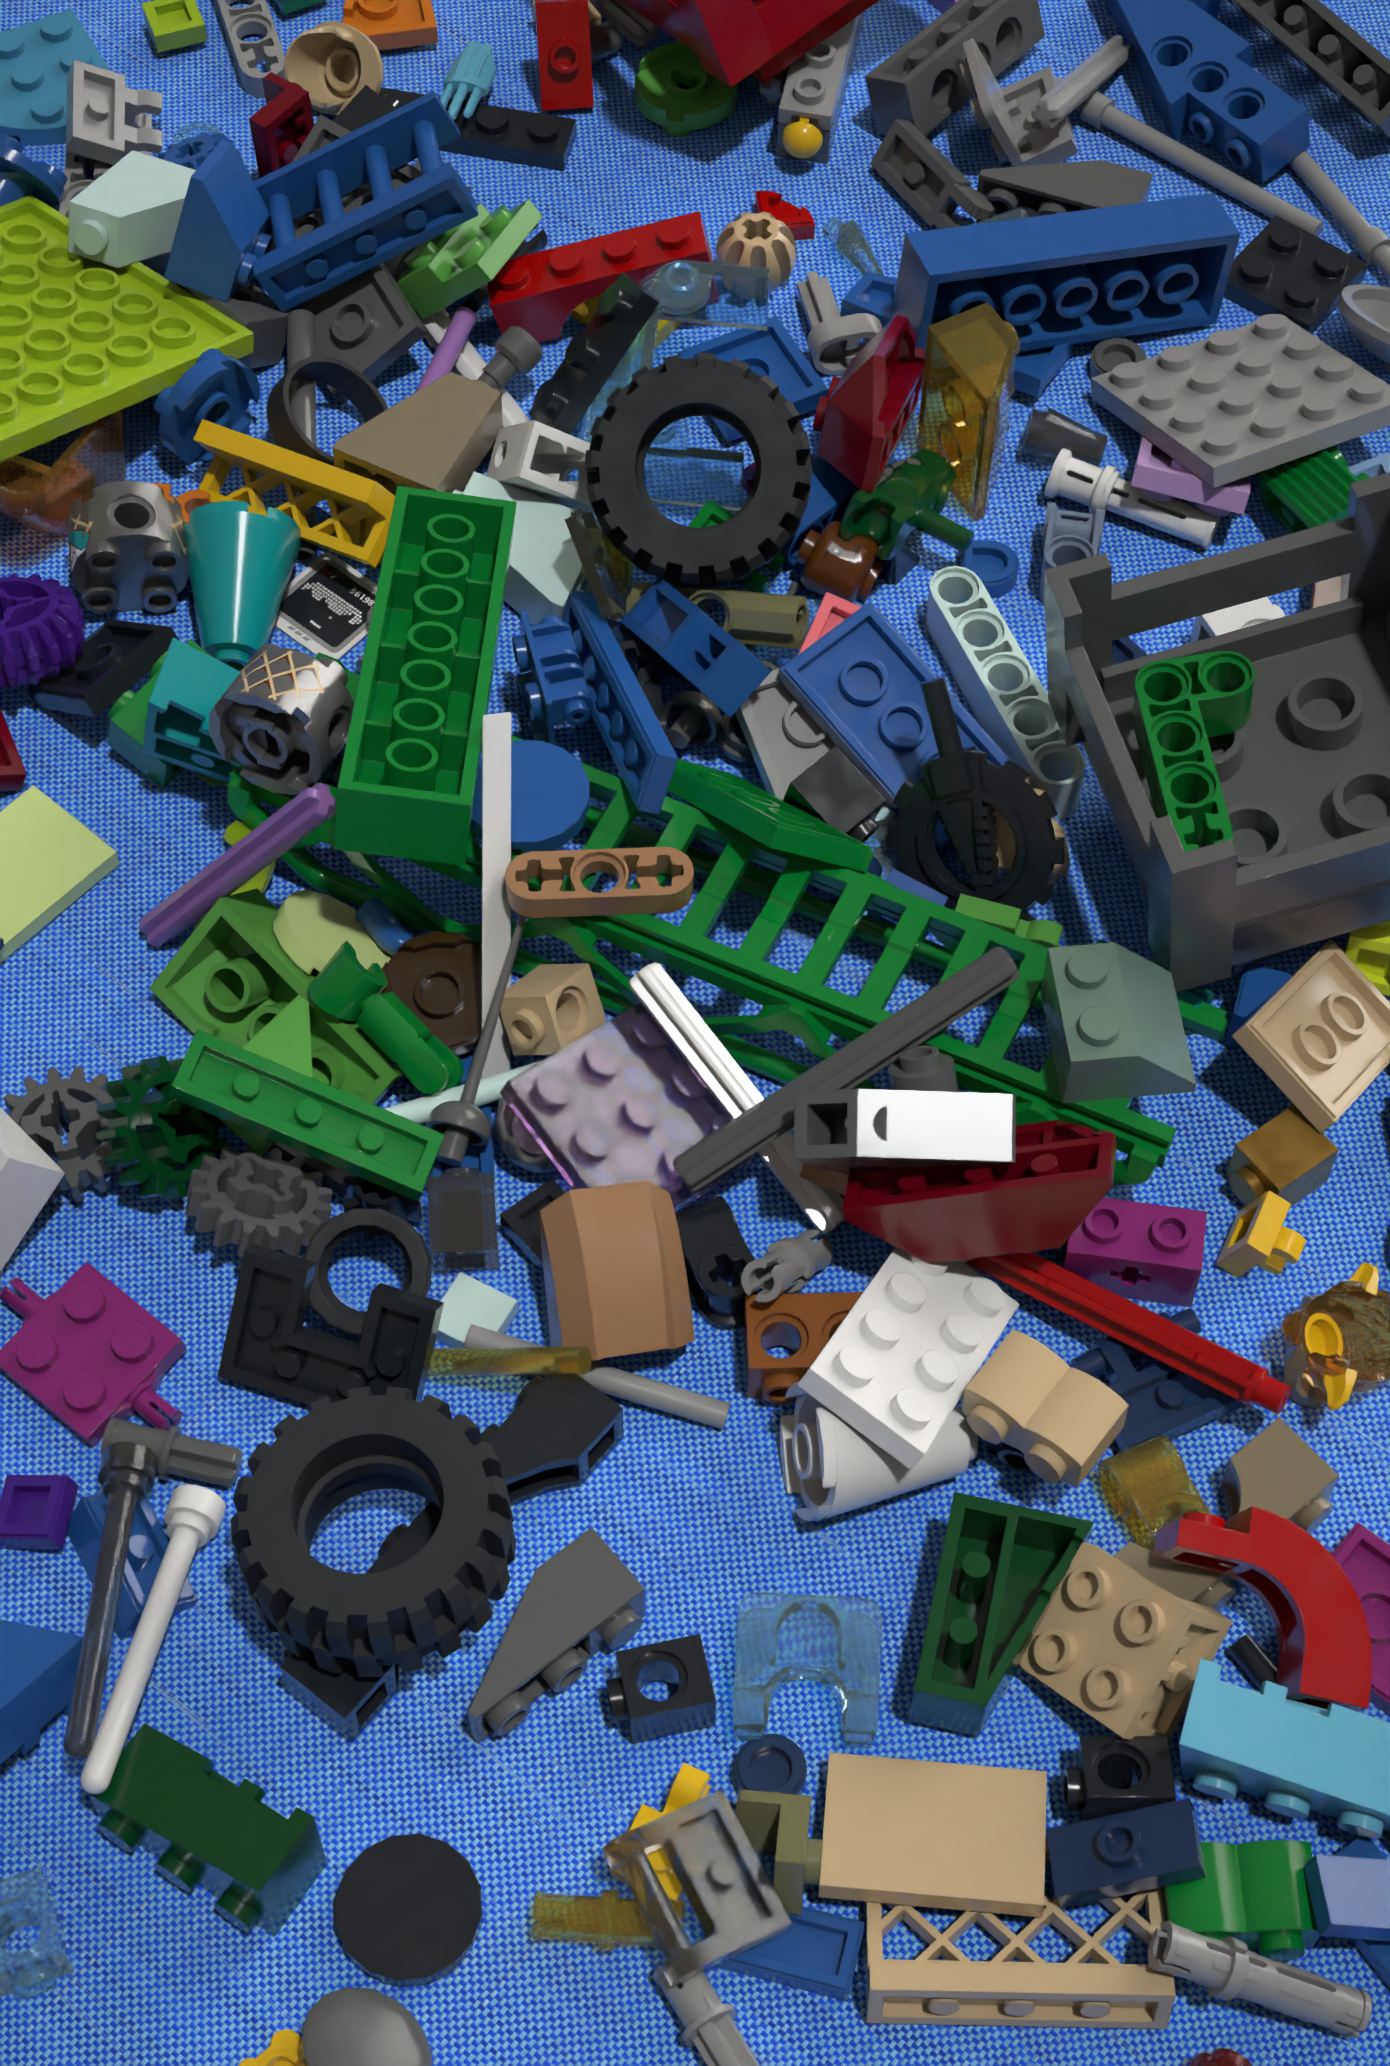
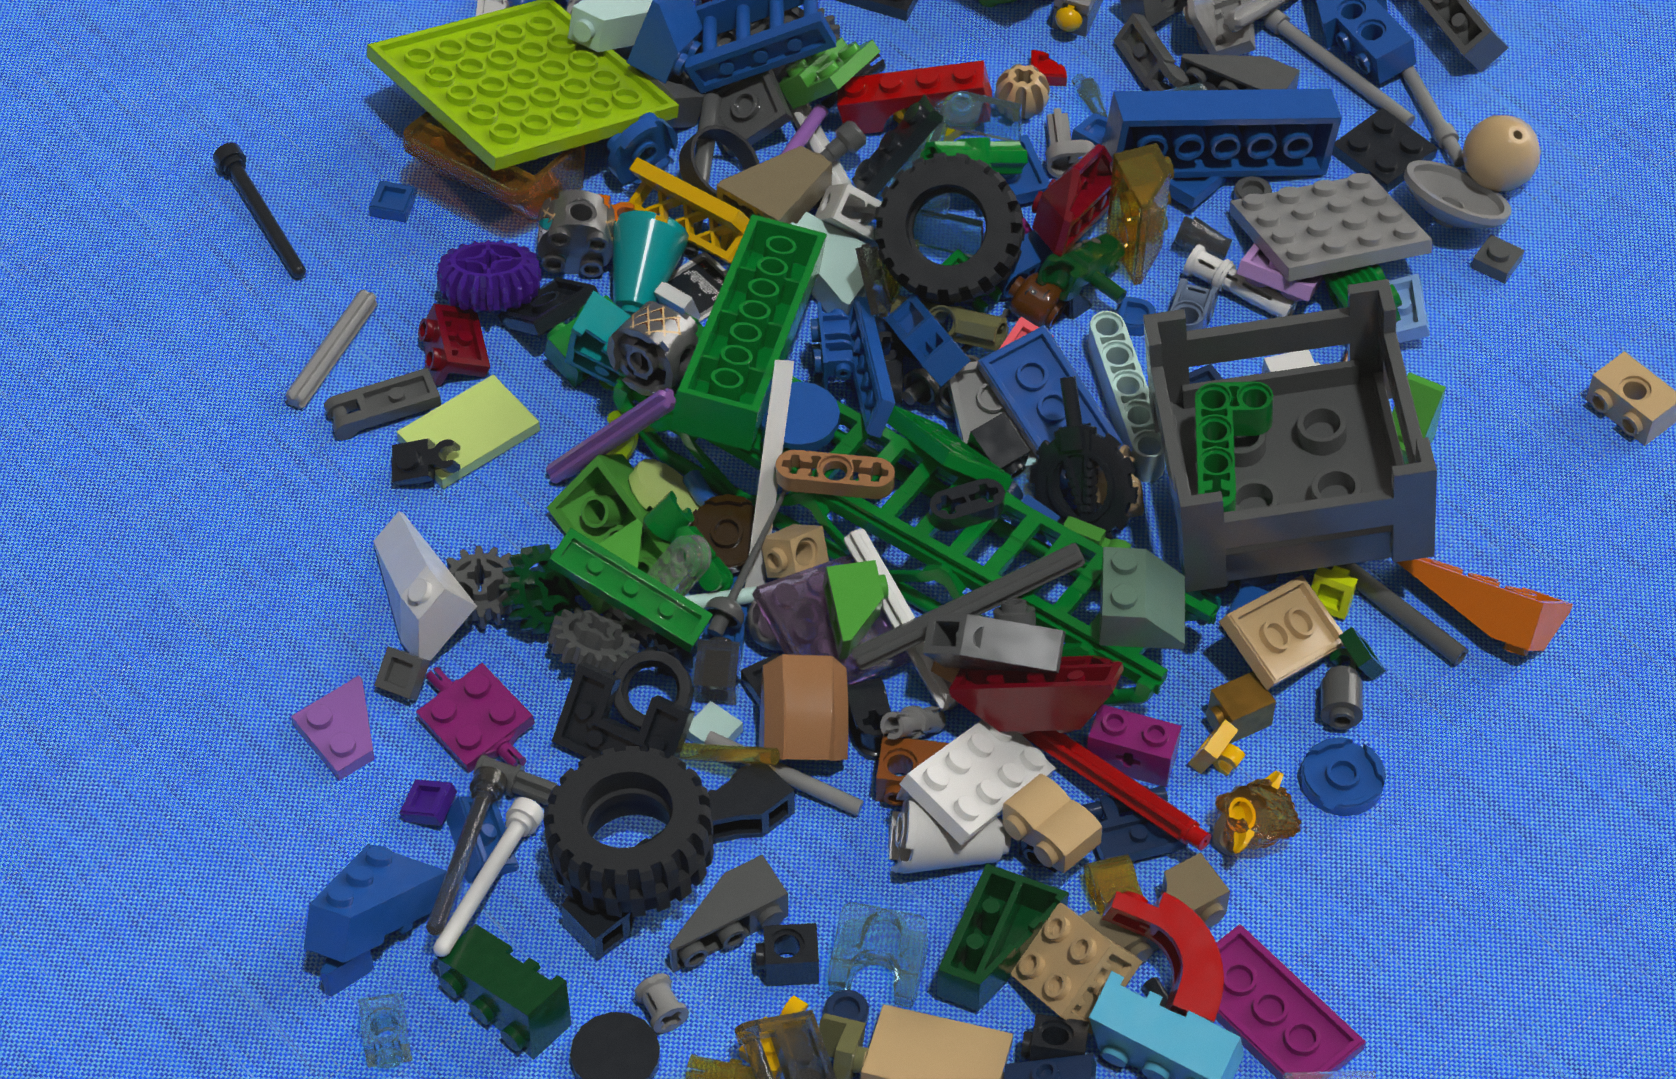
camera: 10 degrees right, 5 degrees down
(297, 633) = (676, 300): none -> white tile
(374, 1071) = (676, 572): none -> clear plate
(470, 1808) = (661, 1003): none -> light grey bush
(663, 1083) = (853, 601): none -> bright green slope
(755, 346) = (1002, 156): none -> green piece
(816, 907) = (966, 504): none -> black beam

